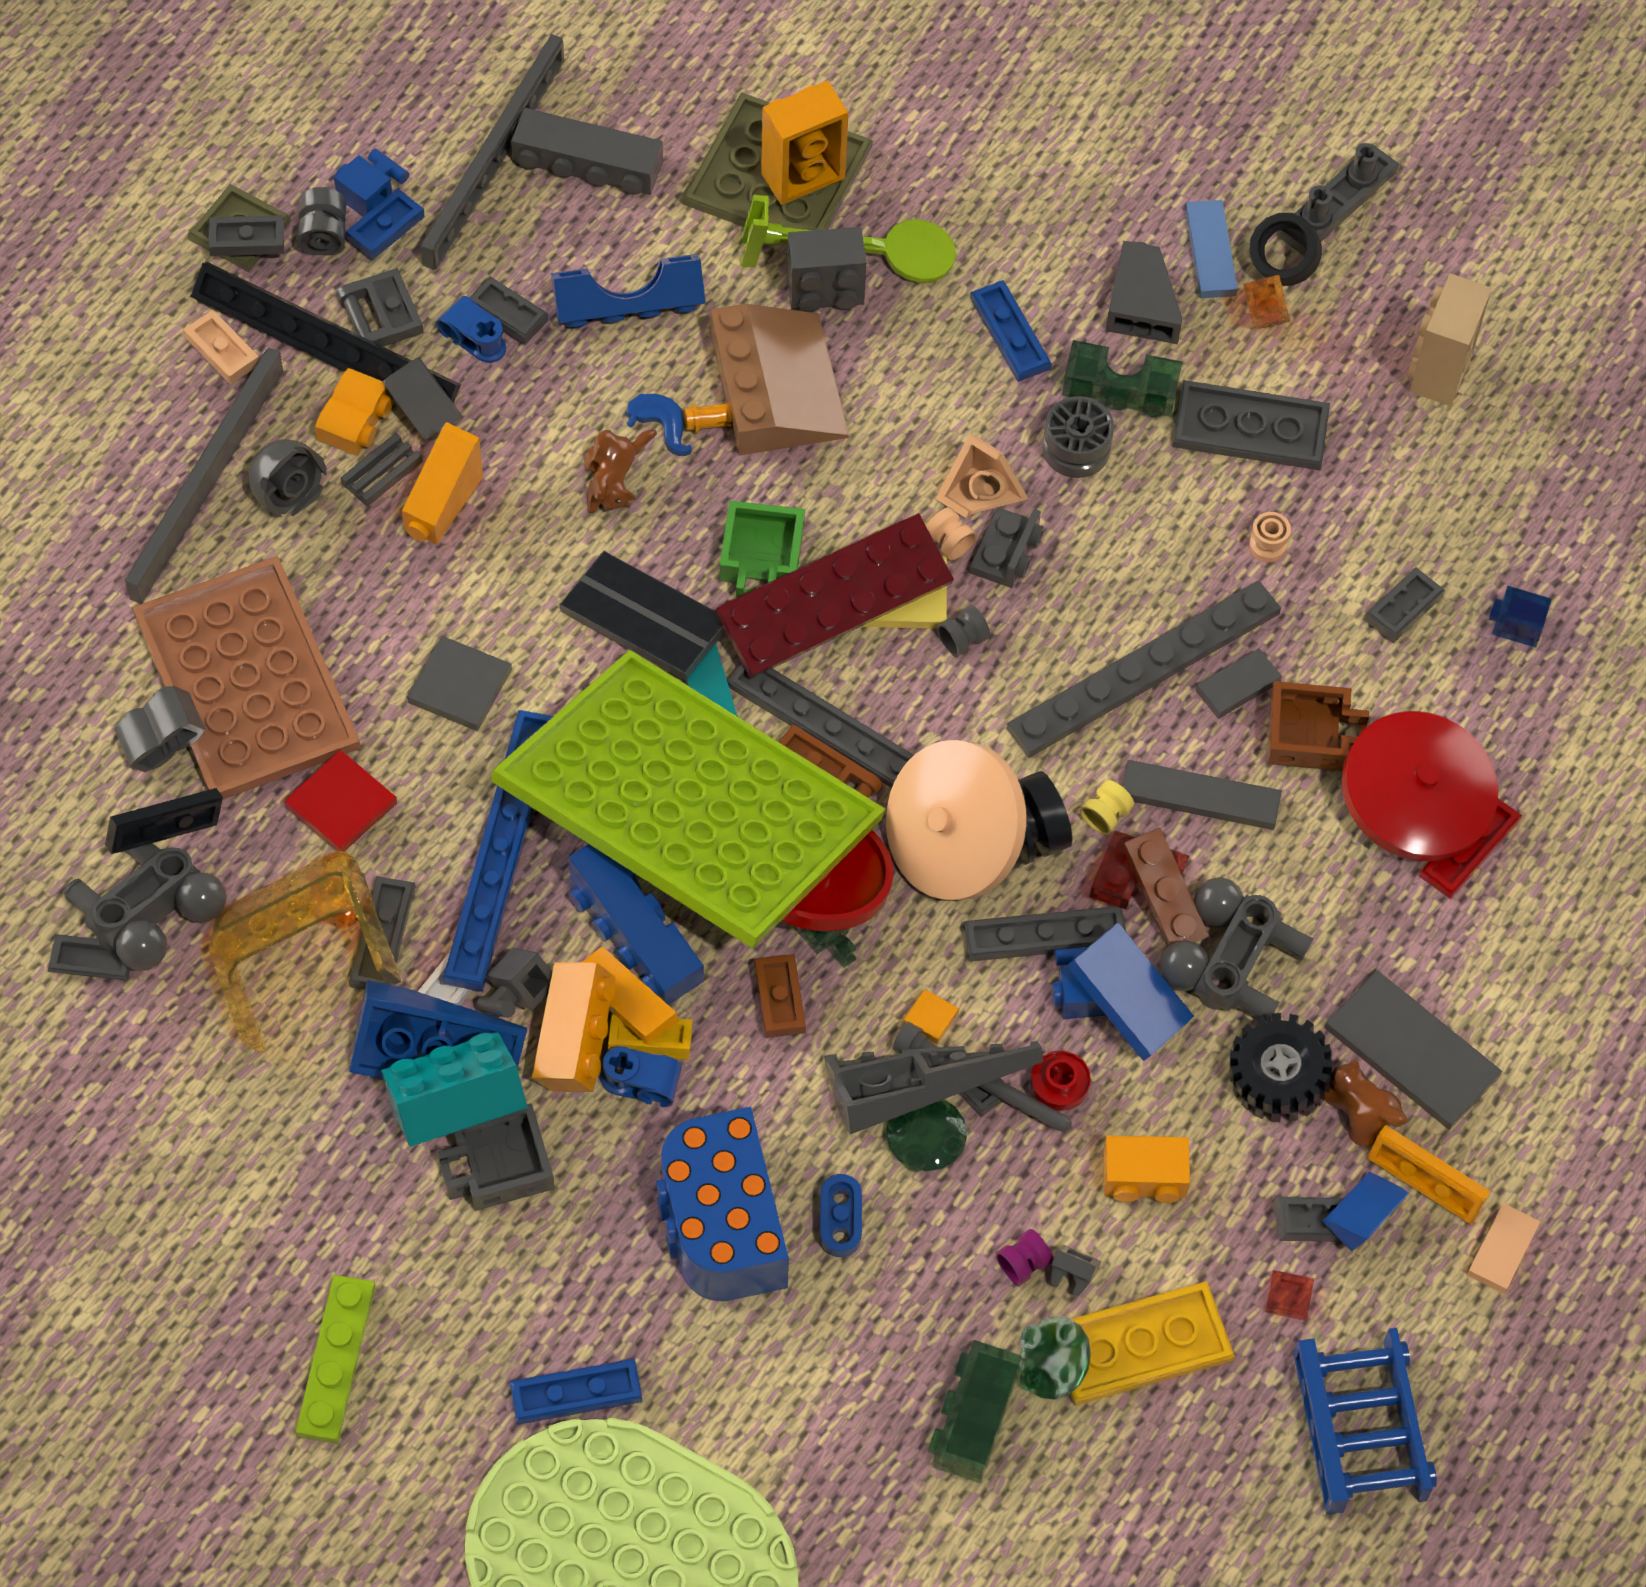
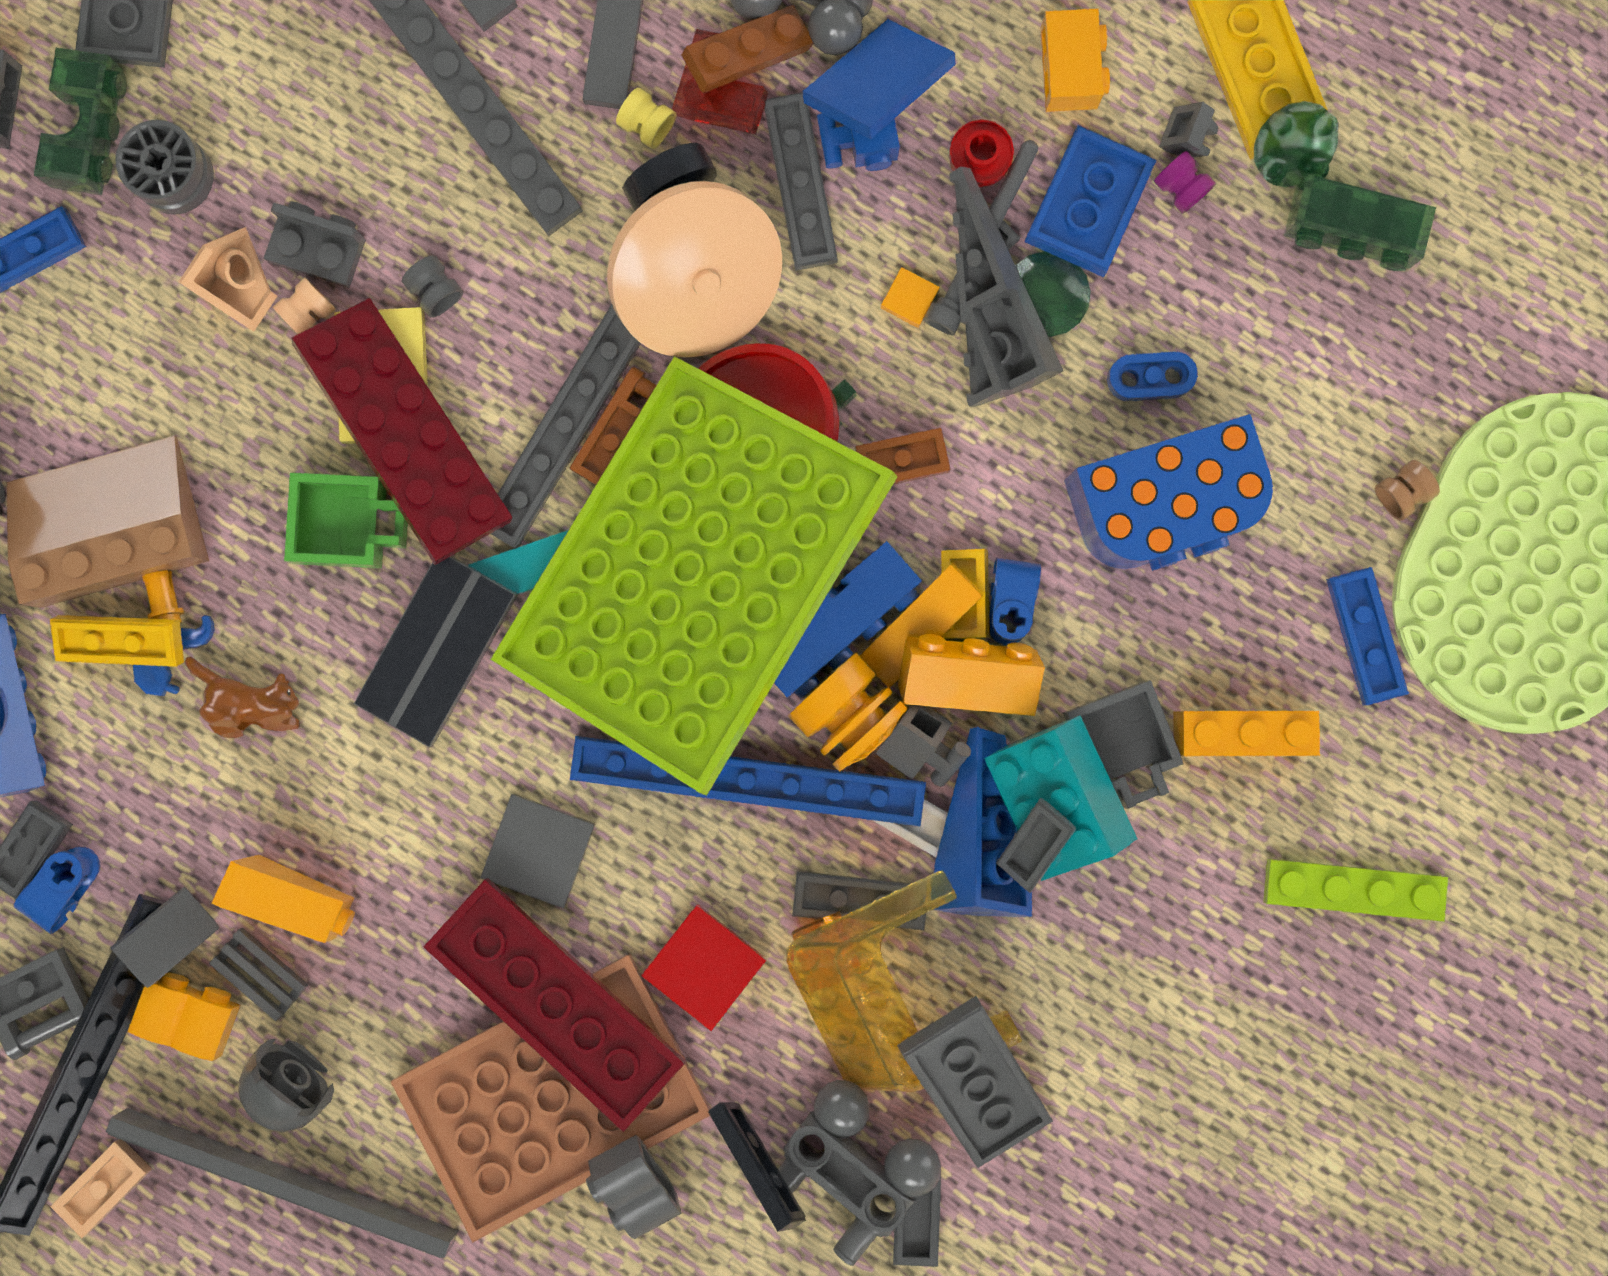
camera: 85 degrees left, 25 degrees up
(208, 997) = (975, 1082): none -> dark grey tile
(325, 677) = (555, 1004): none -> dark red plate
(415, 1053) = (1036, 845): none -> dark grey tile
(495, 1263) = (1247, 733): none -> light orange brick
(554, 919) = (848, 713): none -> light orange wheel
(675, 381) = (117, 640): none -> yellow tile
(712, 1432) = (1409, 488): none -> medium nougat wheel
(1012, 1175) = (1090, 201): none -> blue tile

